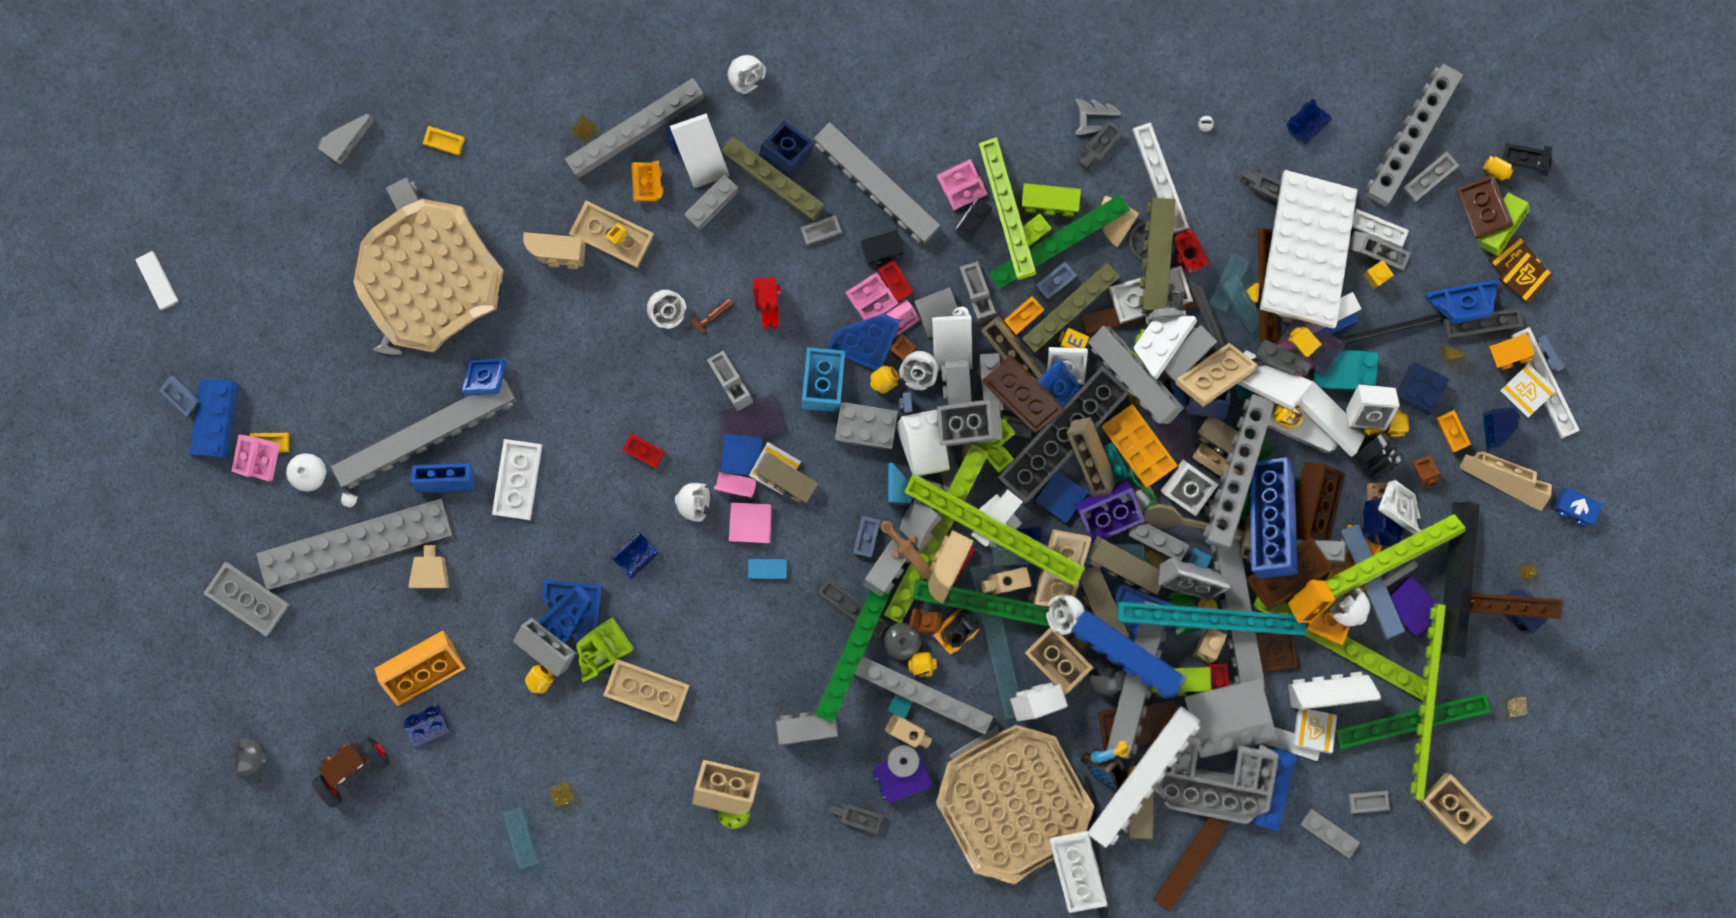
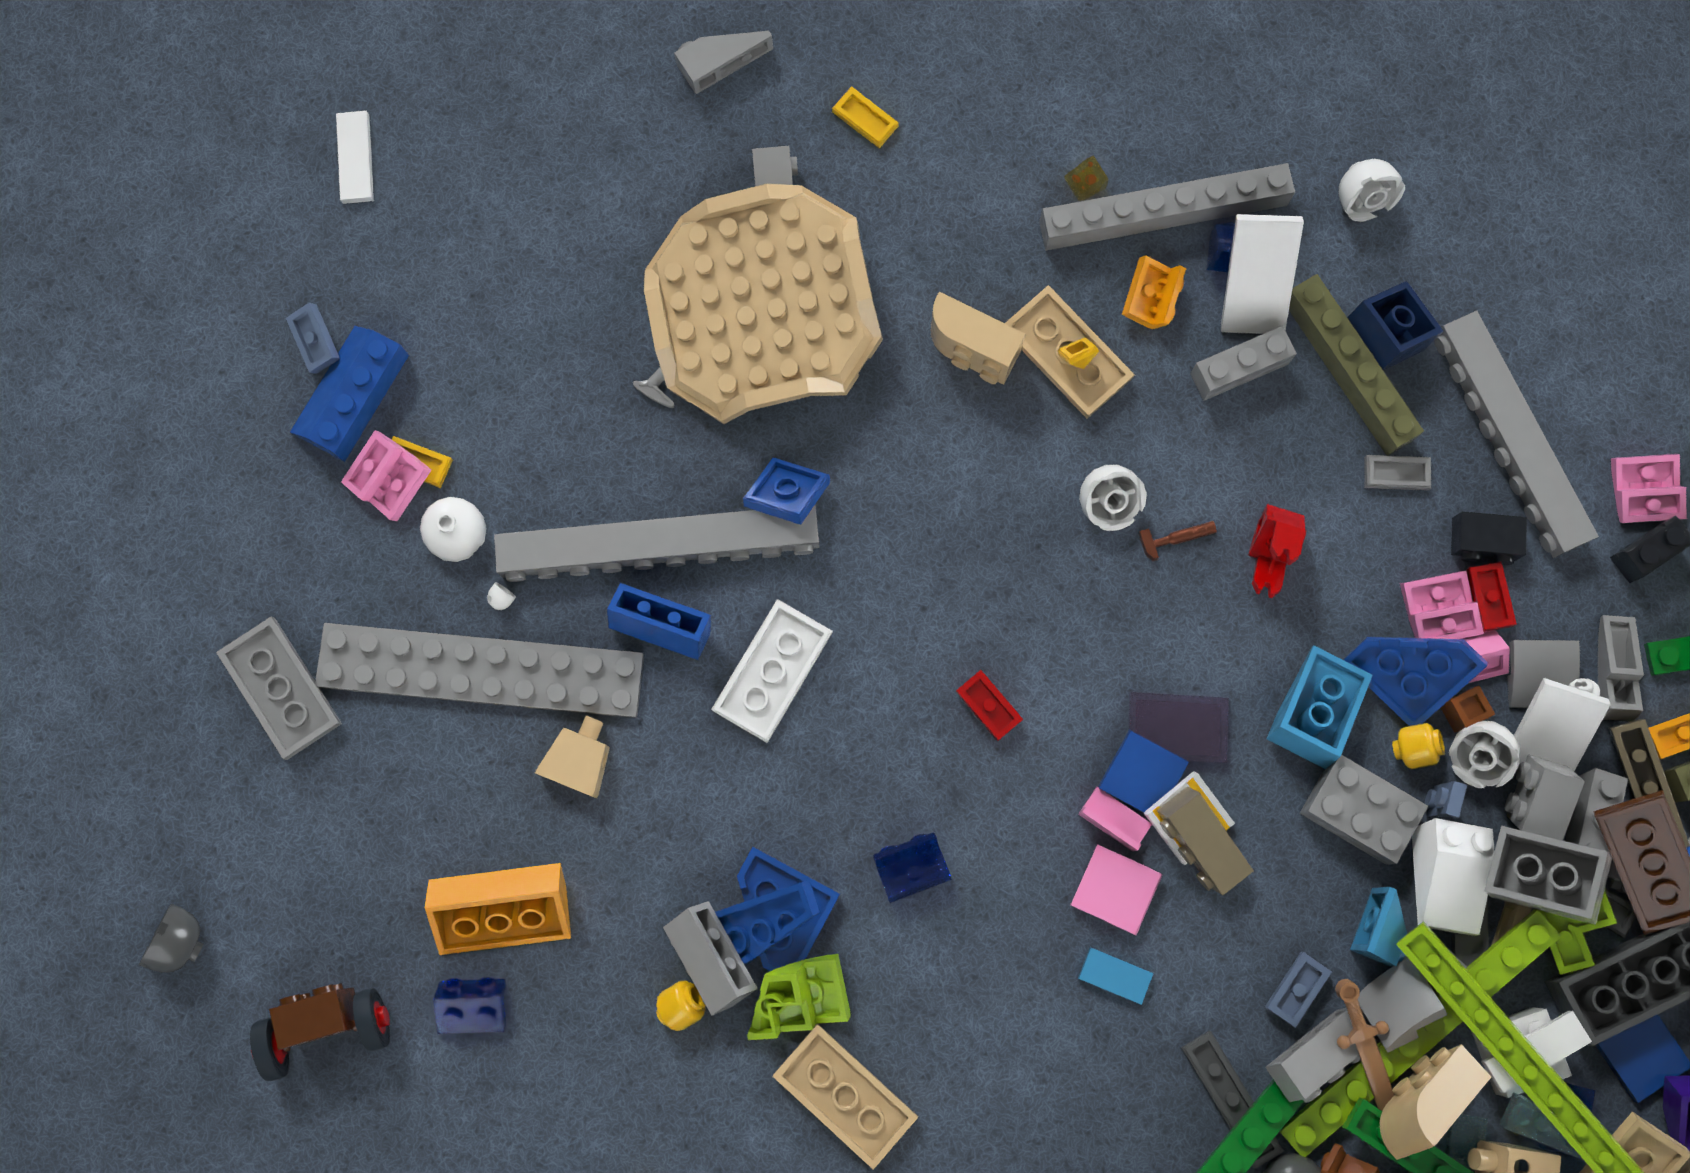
camera: 25 degrees right, 5 degrees down
(692, 500) = (1037, 816): white cylinder -> none
(730, 381) = (1169, 650): light grey slope -> none

